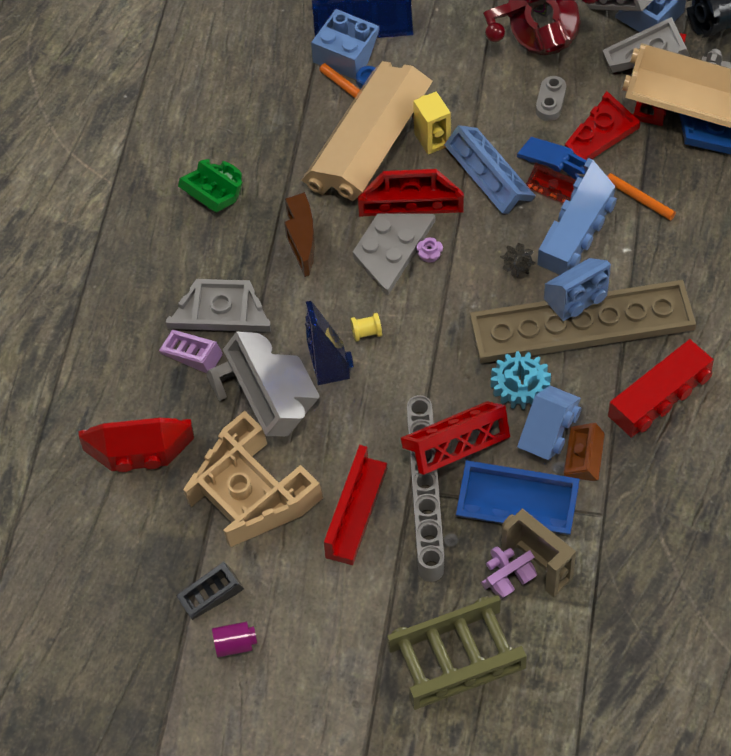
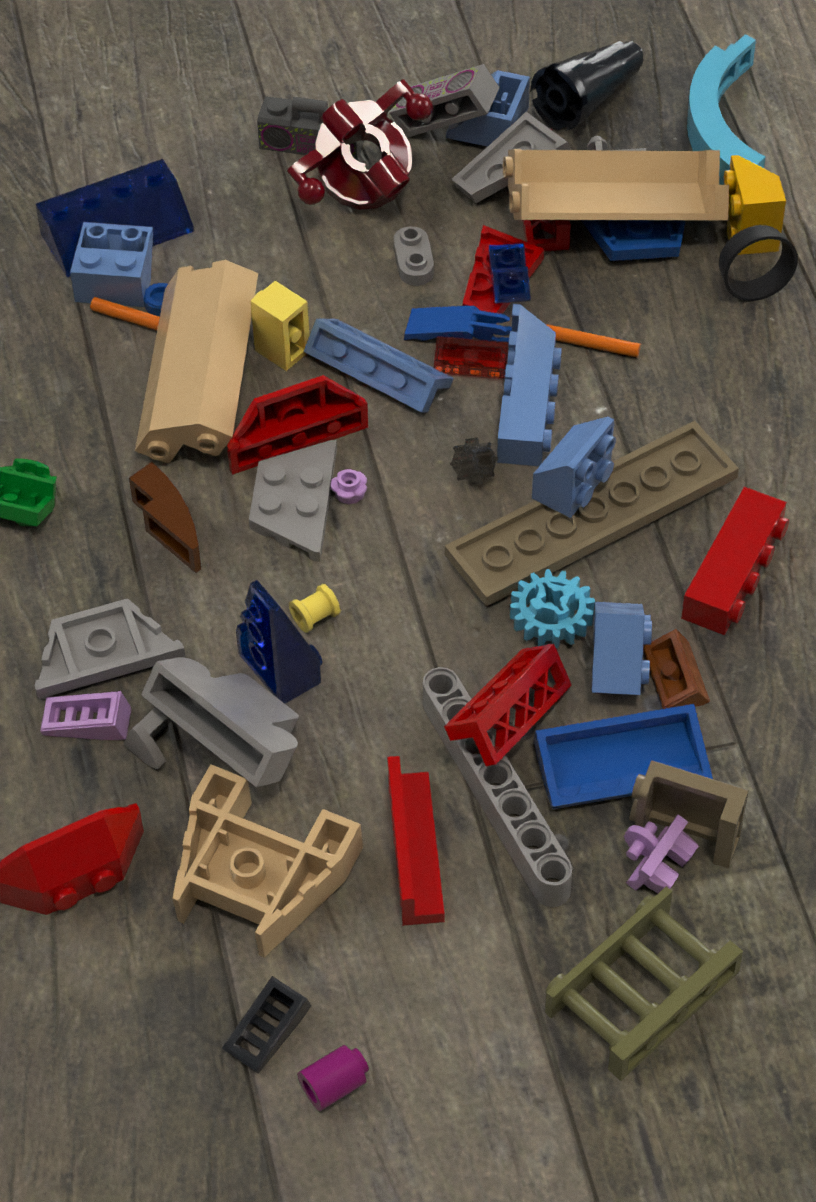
camera: 25 degrees left, 5 degrees down
(605, 132) = (509, 273): none -> clear blue slope

